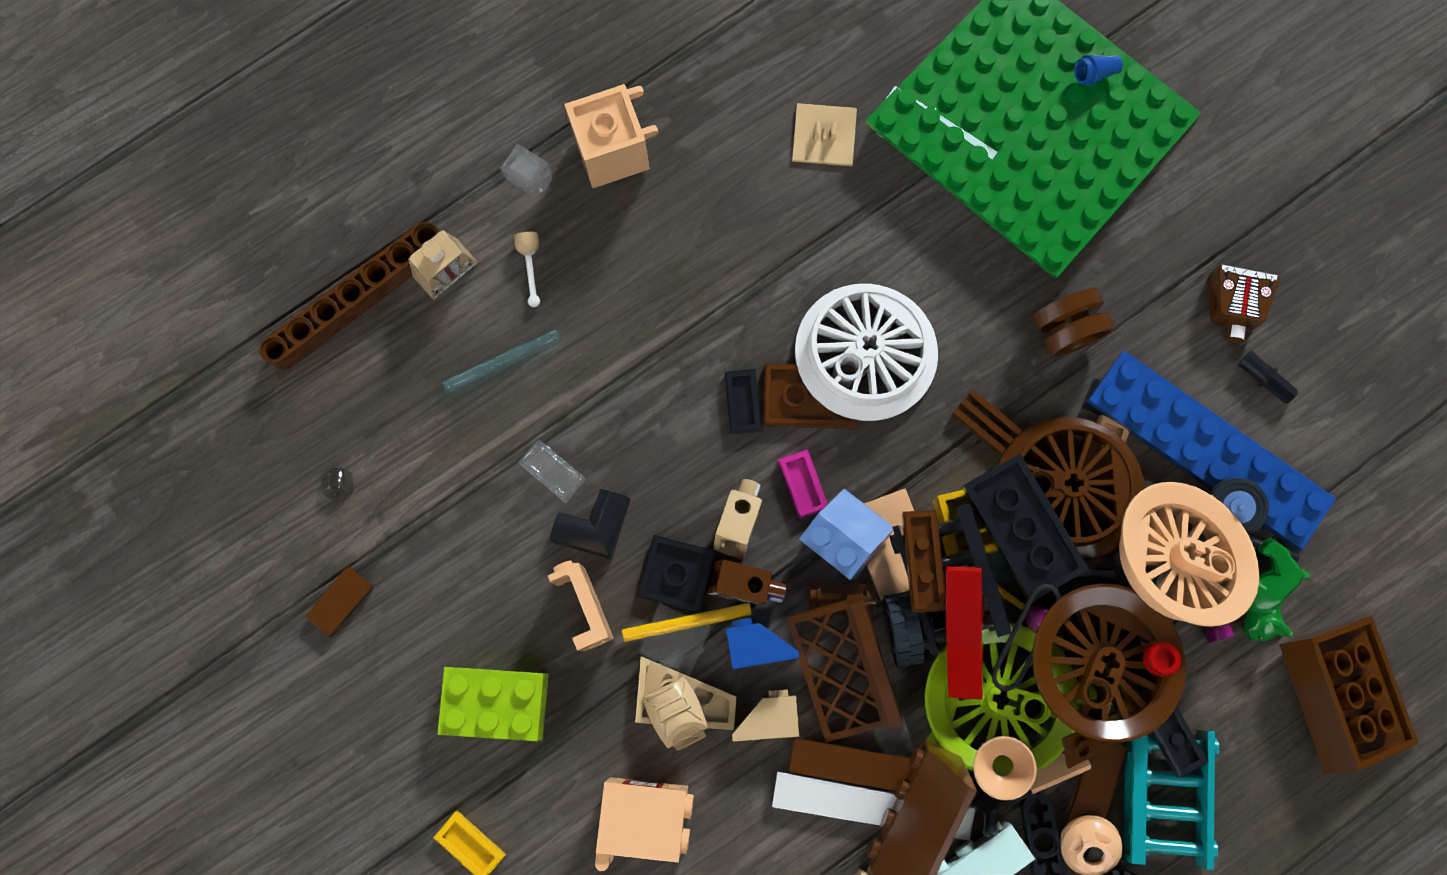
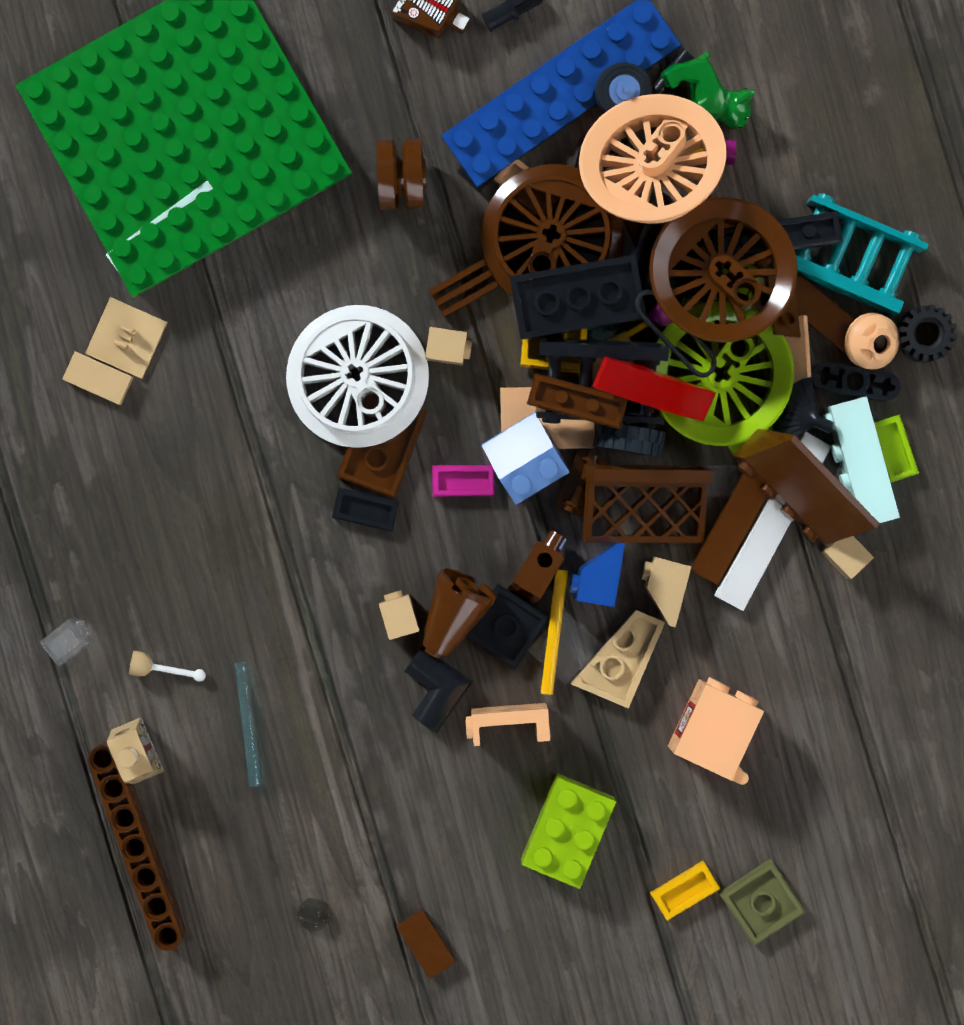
camera: 70 degrees left, 10 degrees up
(552, 471) = (371, 710): clear tile -> none
(610, 134) = (64, 551): light nougat container -> none
(652, 465) = (398, 615): none -> tan brick
(674, 516) = (454, 611): none -> reddish brown cone
(676, 714) = (633, 669): tan piece -> none
(736, 528) = (487, 559): tan torso -> none
(778, 121) = (97, 378): none -> tan tile
(926, 424) = (447, 346): none -> tan brick
(1014, 783) = (797, 396): light nougat piece -> none
(1096, 68) = (155, 52): blue cone -> none
(1162, 659) = (736, 222): red tile -> none
(1348, 696) = (822, 58): reddish brown slope -> none

